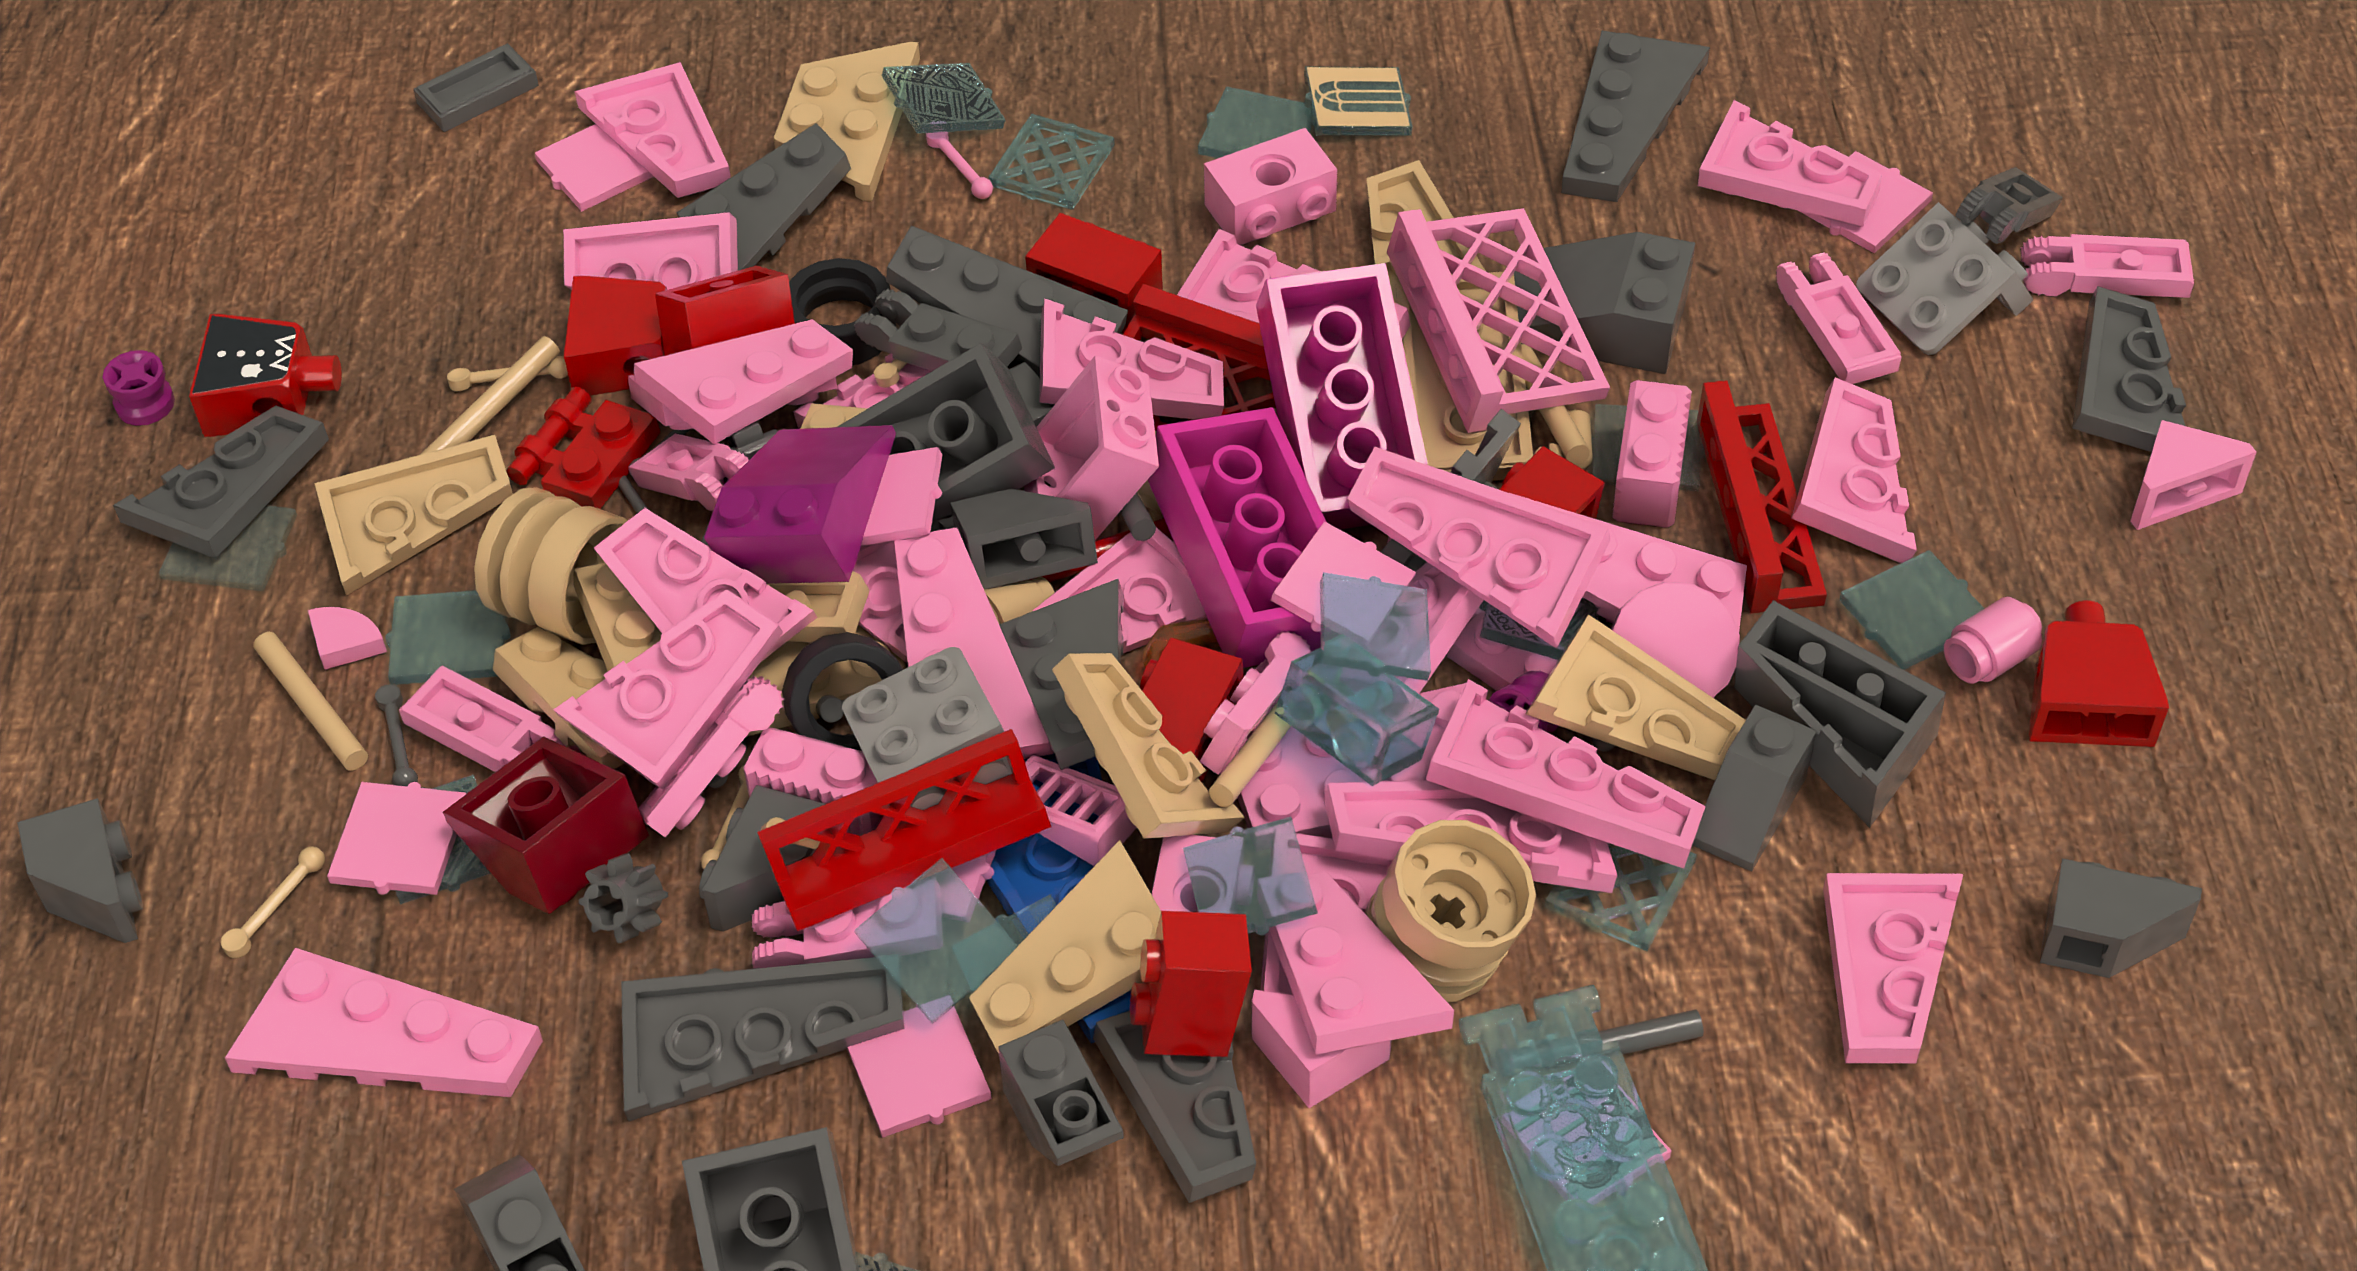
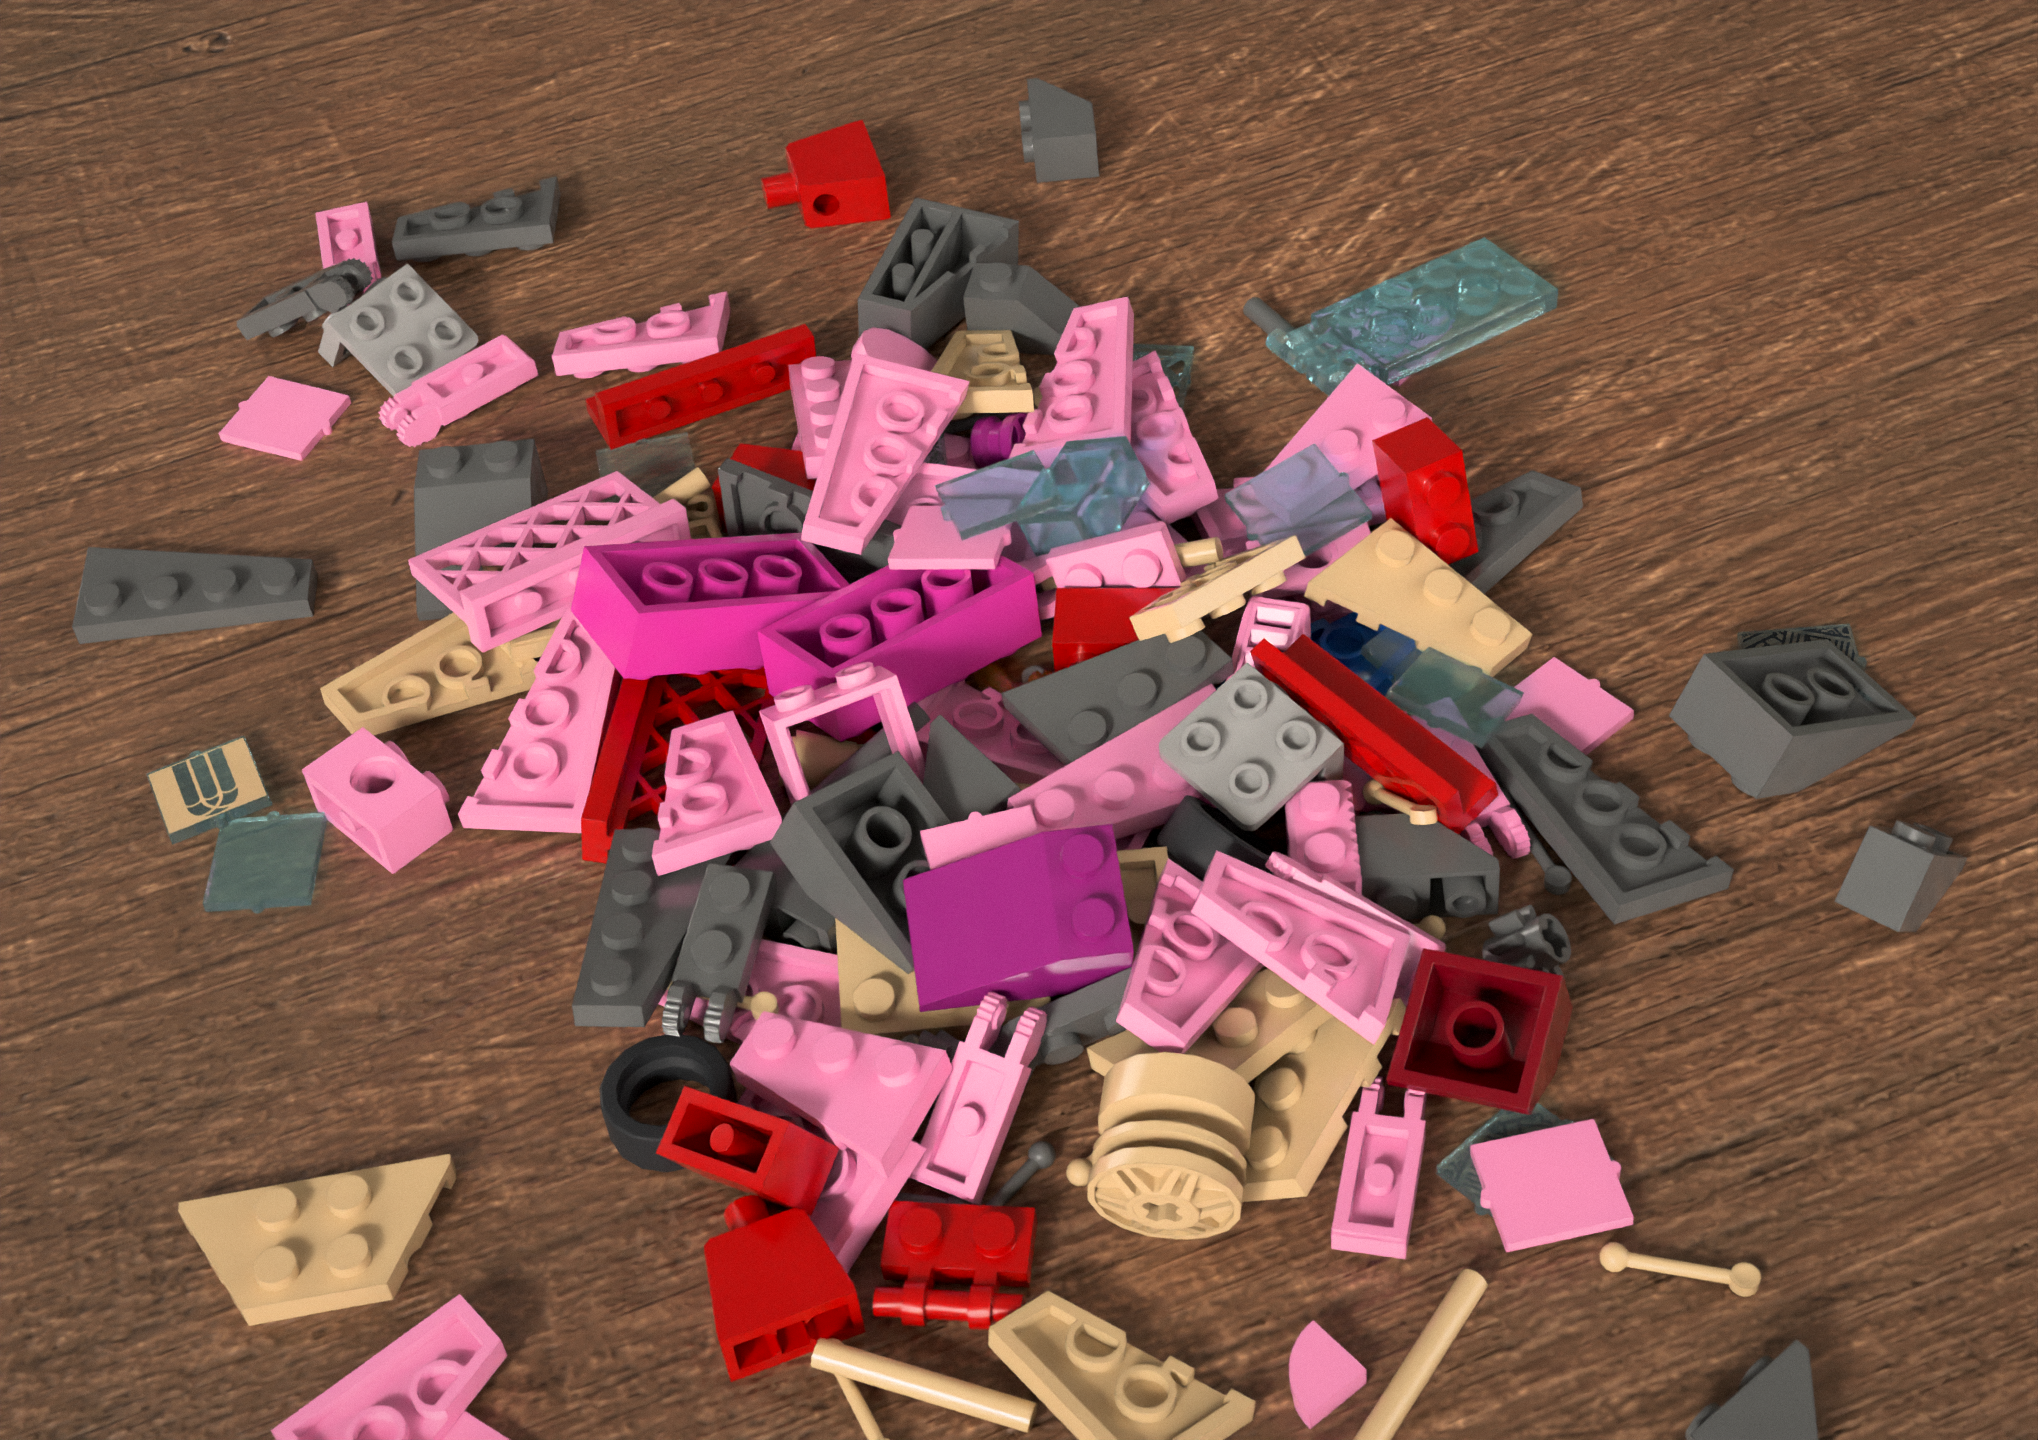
camera: 105 degrees left, 5 degrees down
(378, 1029) = (1768, 1109): bright pink wing -> none
(389, 700) = (1377, 1294): dark grey hinge -> none
(444, 631) = (1267, 1283): clear light blue piece -> none
(654, 250) = (649, 1298): bright pink wing -> none
(775, 192) = (508, 1244): dark grey wing -> none
(943, 98) = (280, 1139): clear light blue piece -> none
(981, 186) = (335, 1139): bright pink hinge -> none
(1056, 1095) = (1558, 582): dark grey slope -> none
(1067, 133) = (352, 1057): clear light blue window -> none
(1095, 261) = (546, 897): red brick -> none
(1454, 904) = (1250, 401): tan wheel -> none
(1651, 454) = (677, 435): bright pink brick -> none
(1778, 170) = (268, 461): bright pink wing -> none
(1887, 957) = (1138, 231): bright pink wing -> none
(1911, 608) = (782, 291): clear light blue piece -> none
(1993, 640) = (813, 230): bright pink brick -> none
(2190, 472) = (595, 176): bright pink slope -> none

